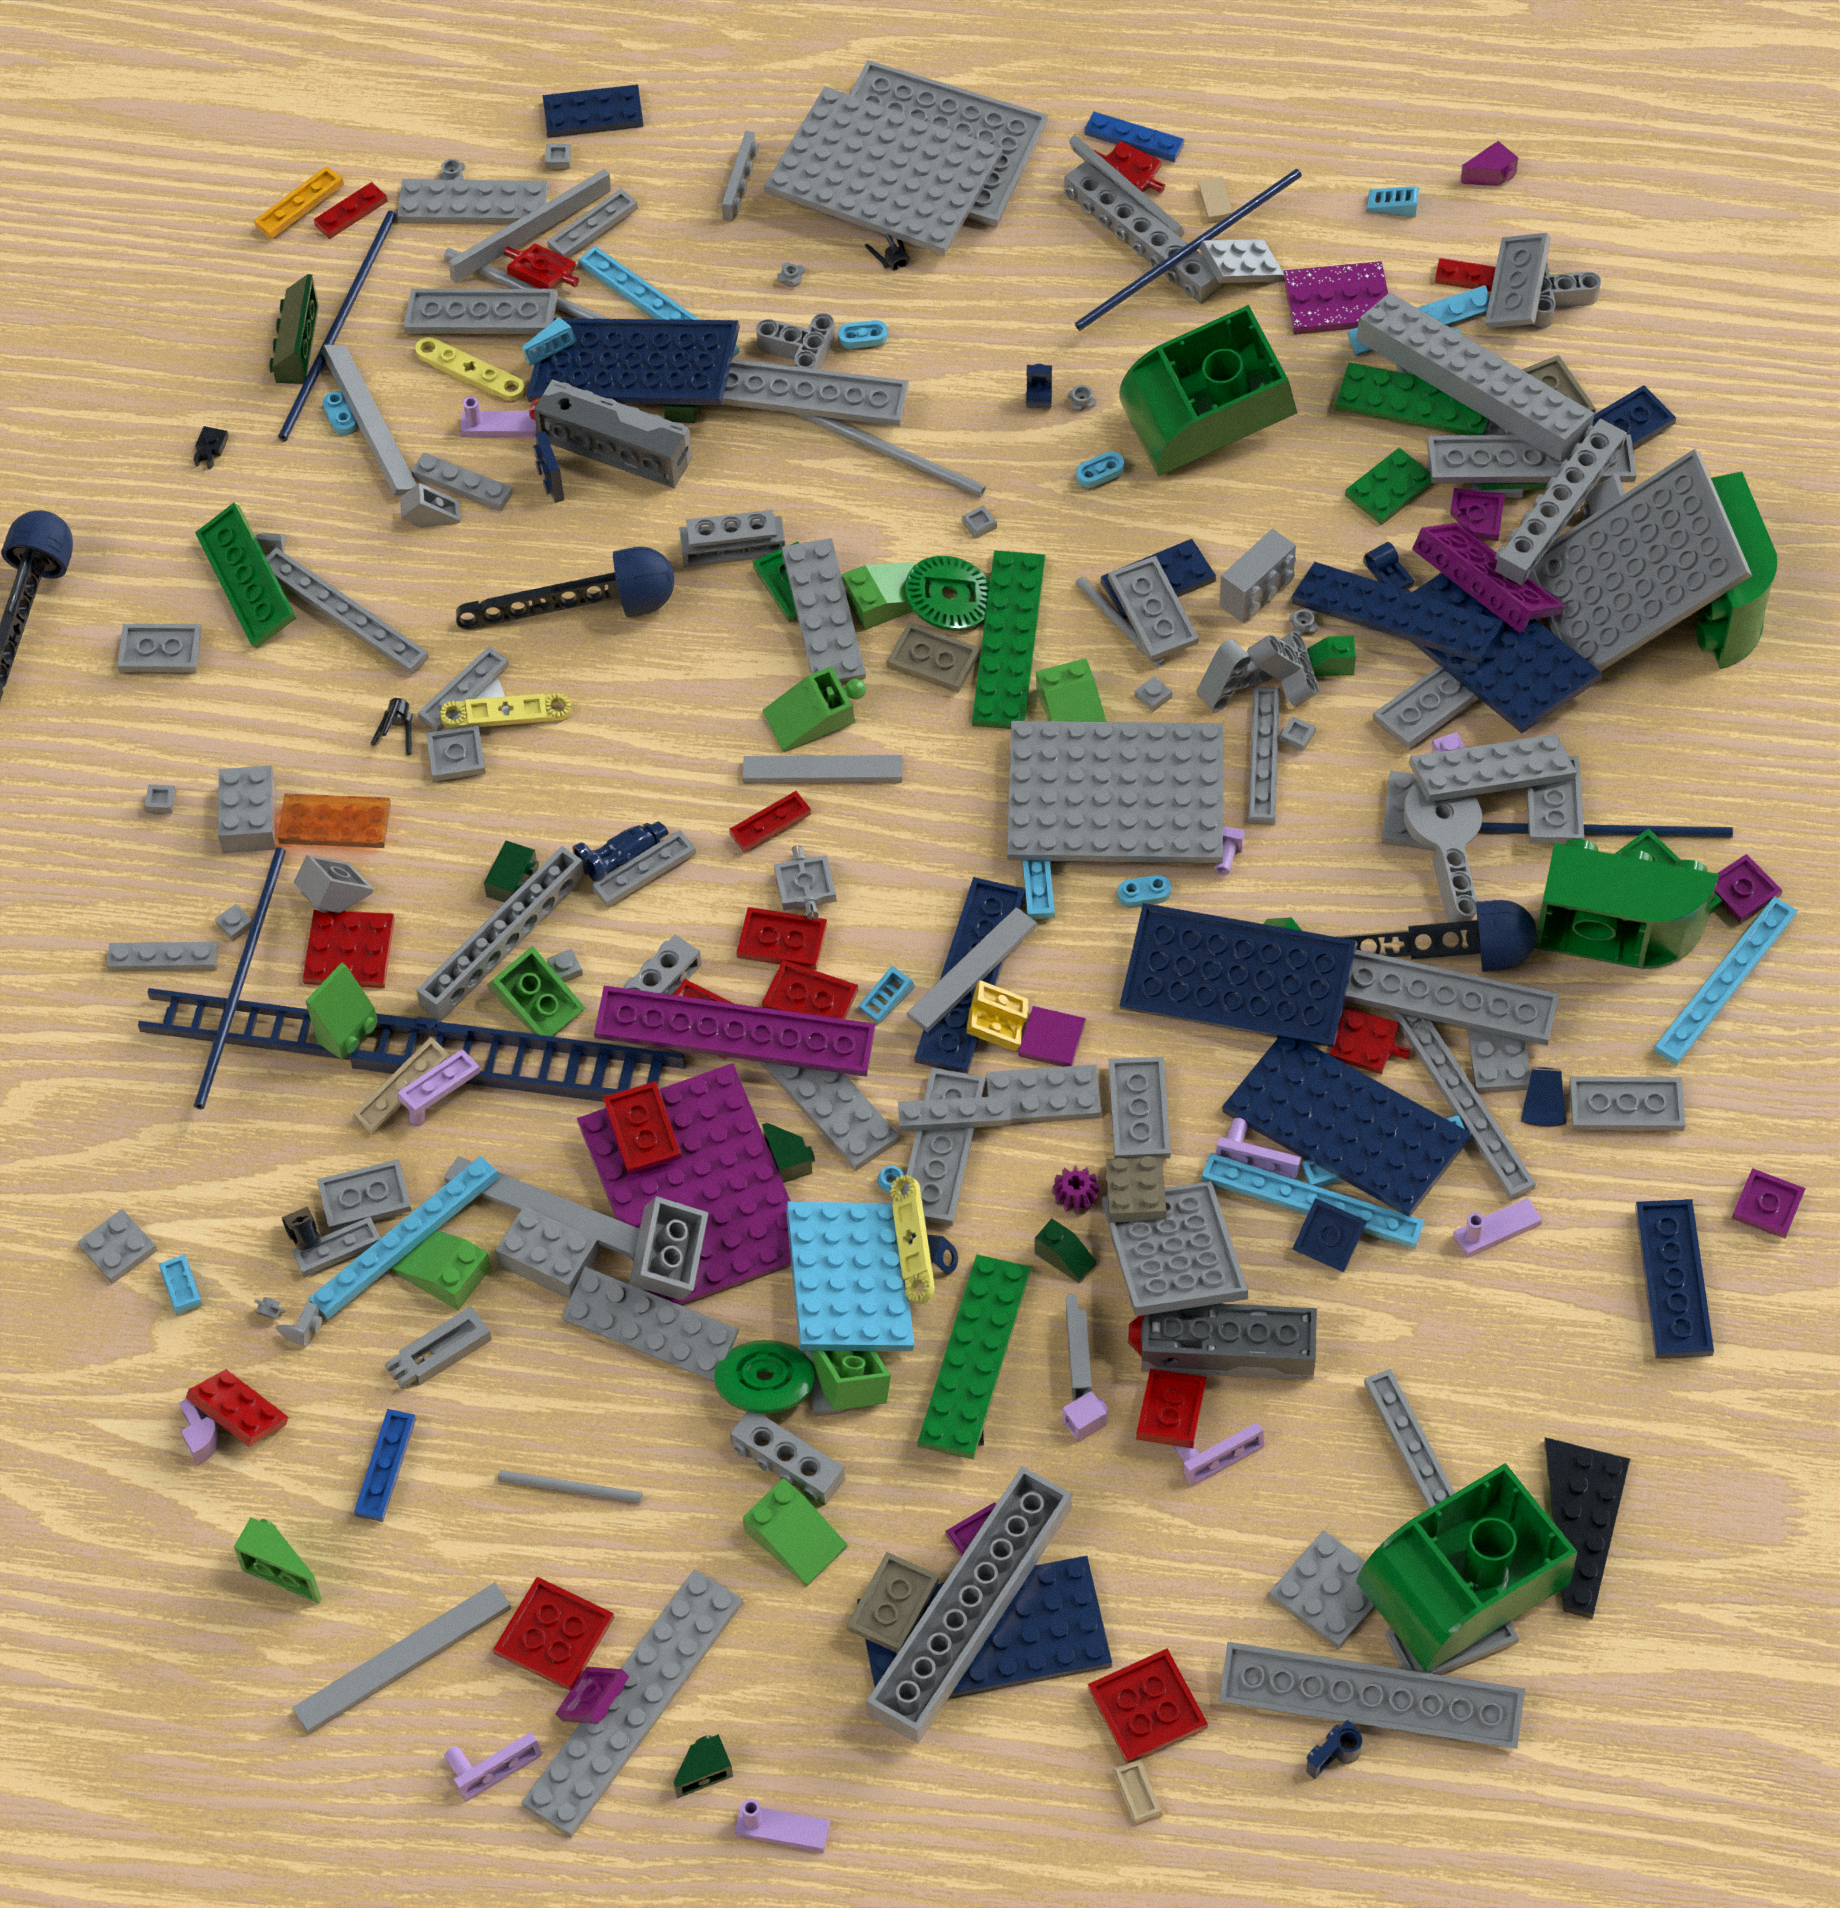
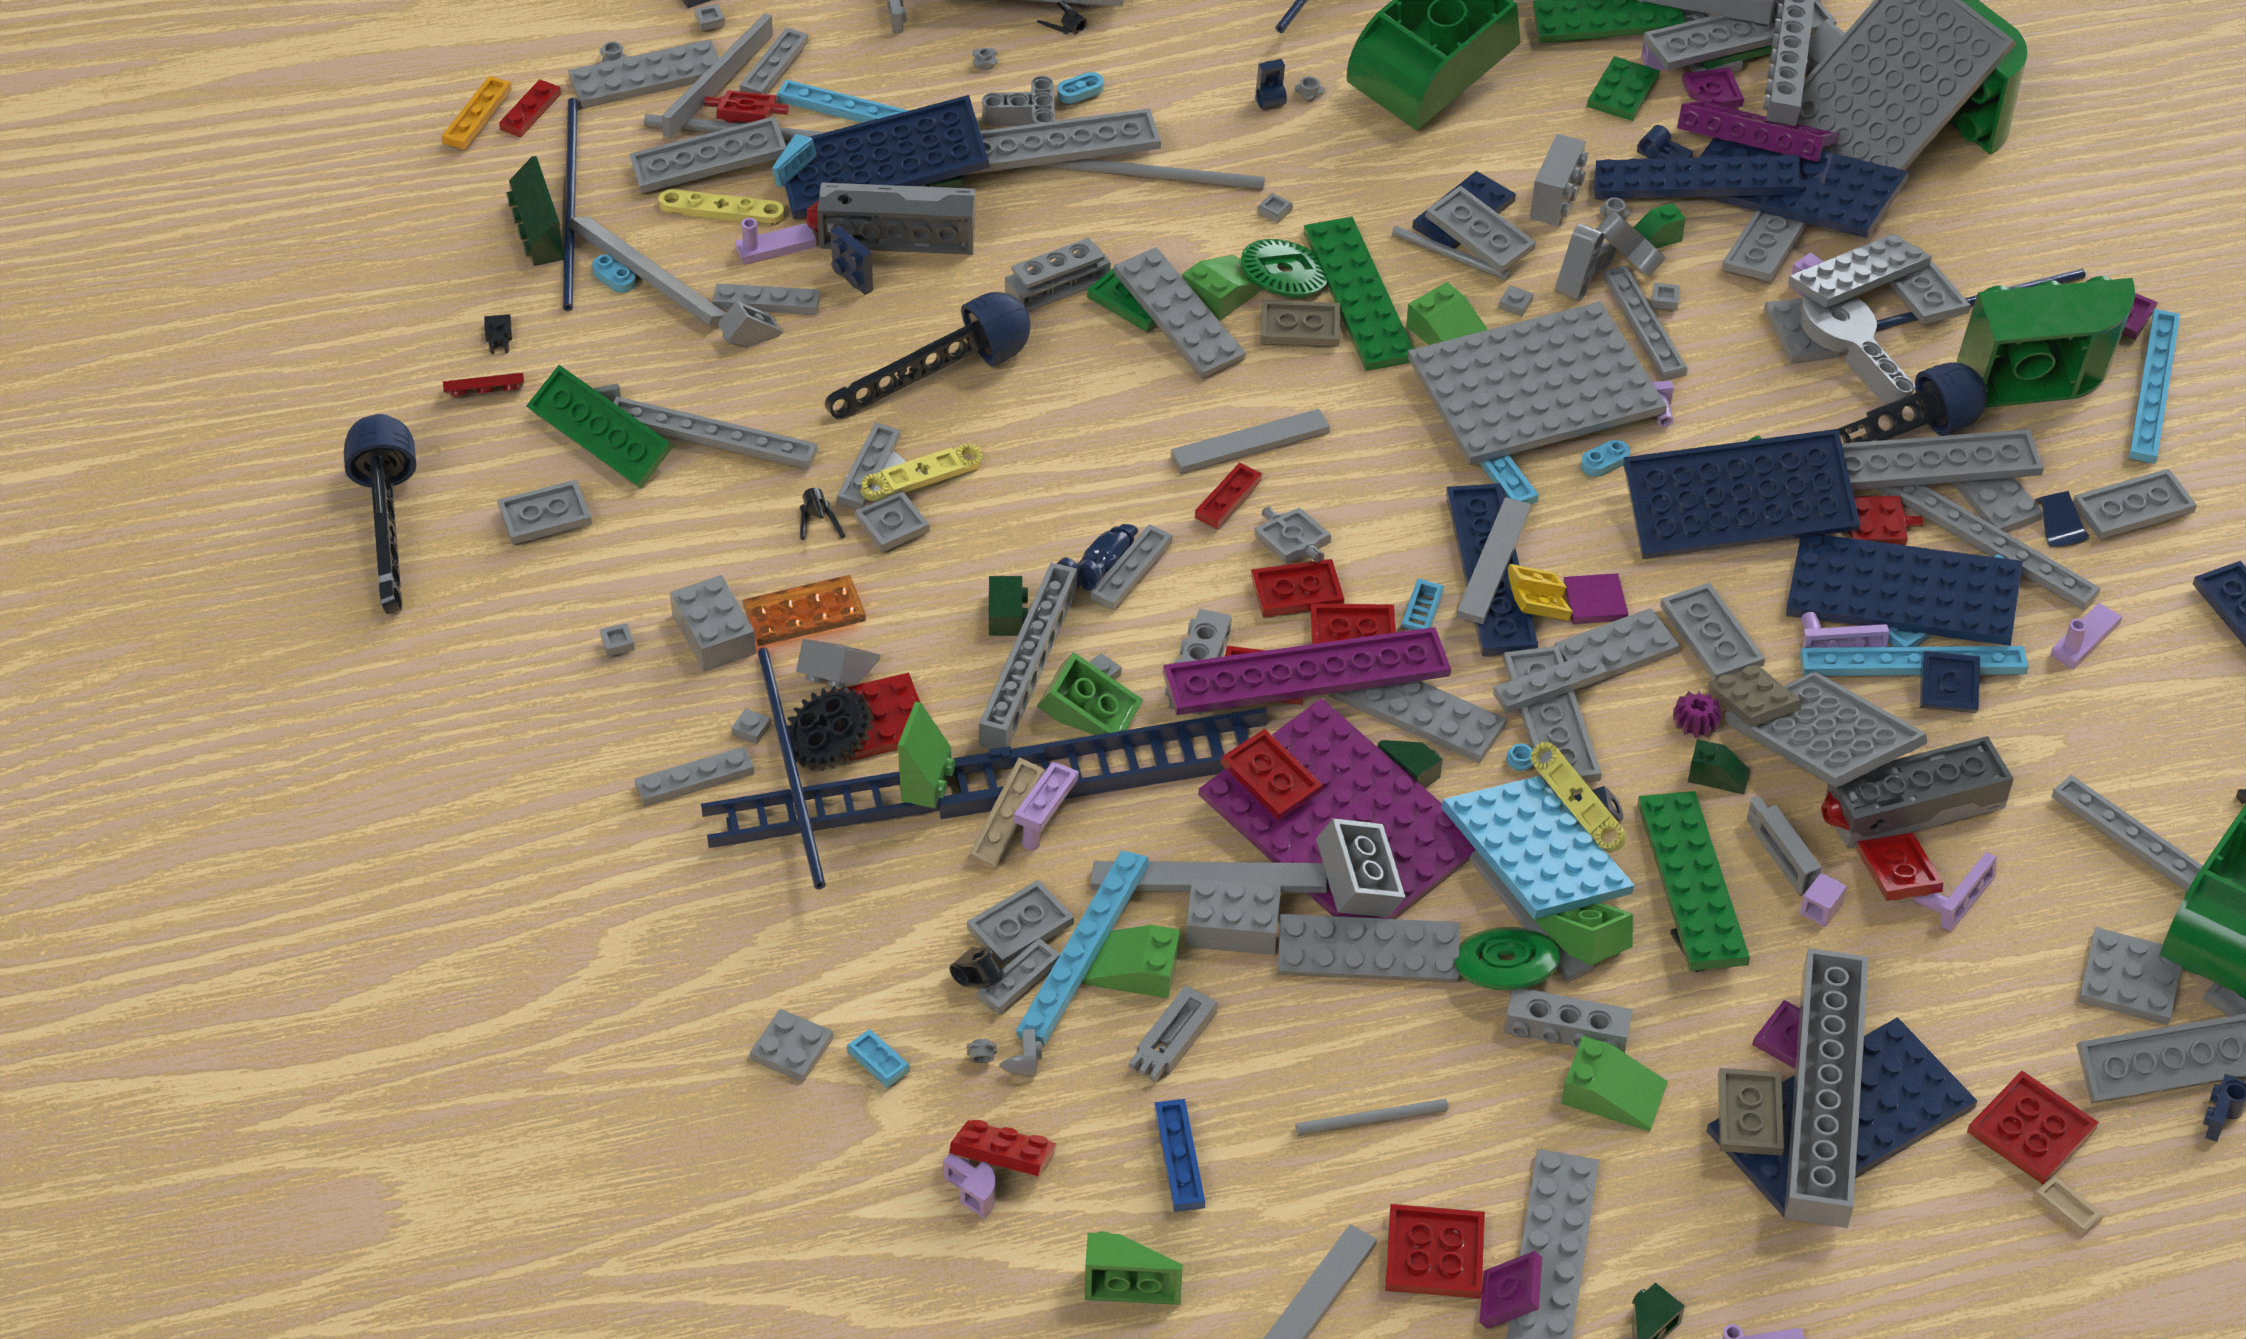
camera: 25 degrees left, 10 degrees down
(169, 497) = (483, 384): none -> red plate
(292, 949) = (829, 727): none -> black gear
(806, 715) = (1215, 392): bright green slope -> none
(1099, 469) = (1361, 138): medium azure plate -> none

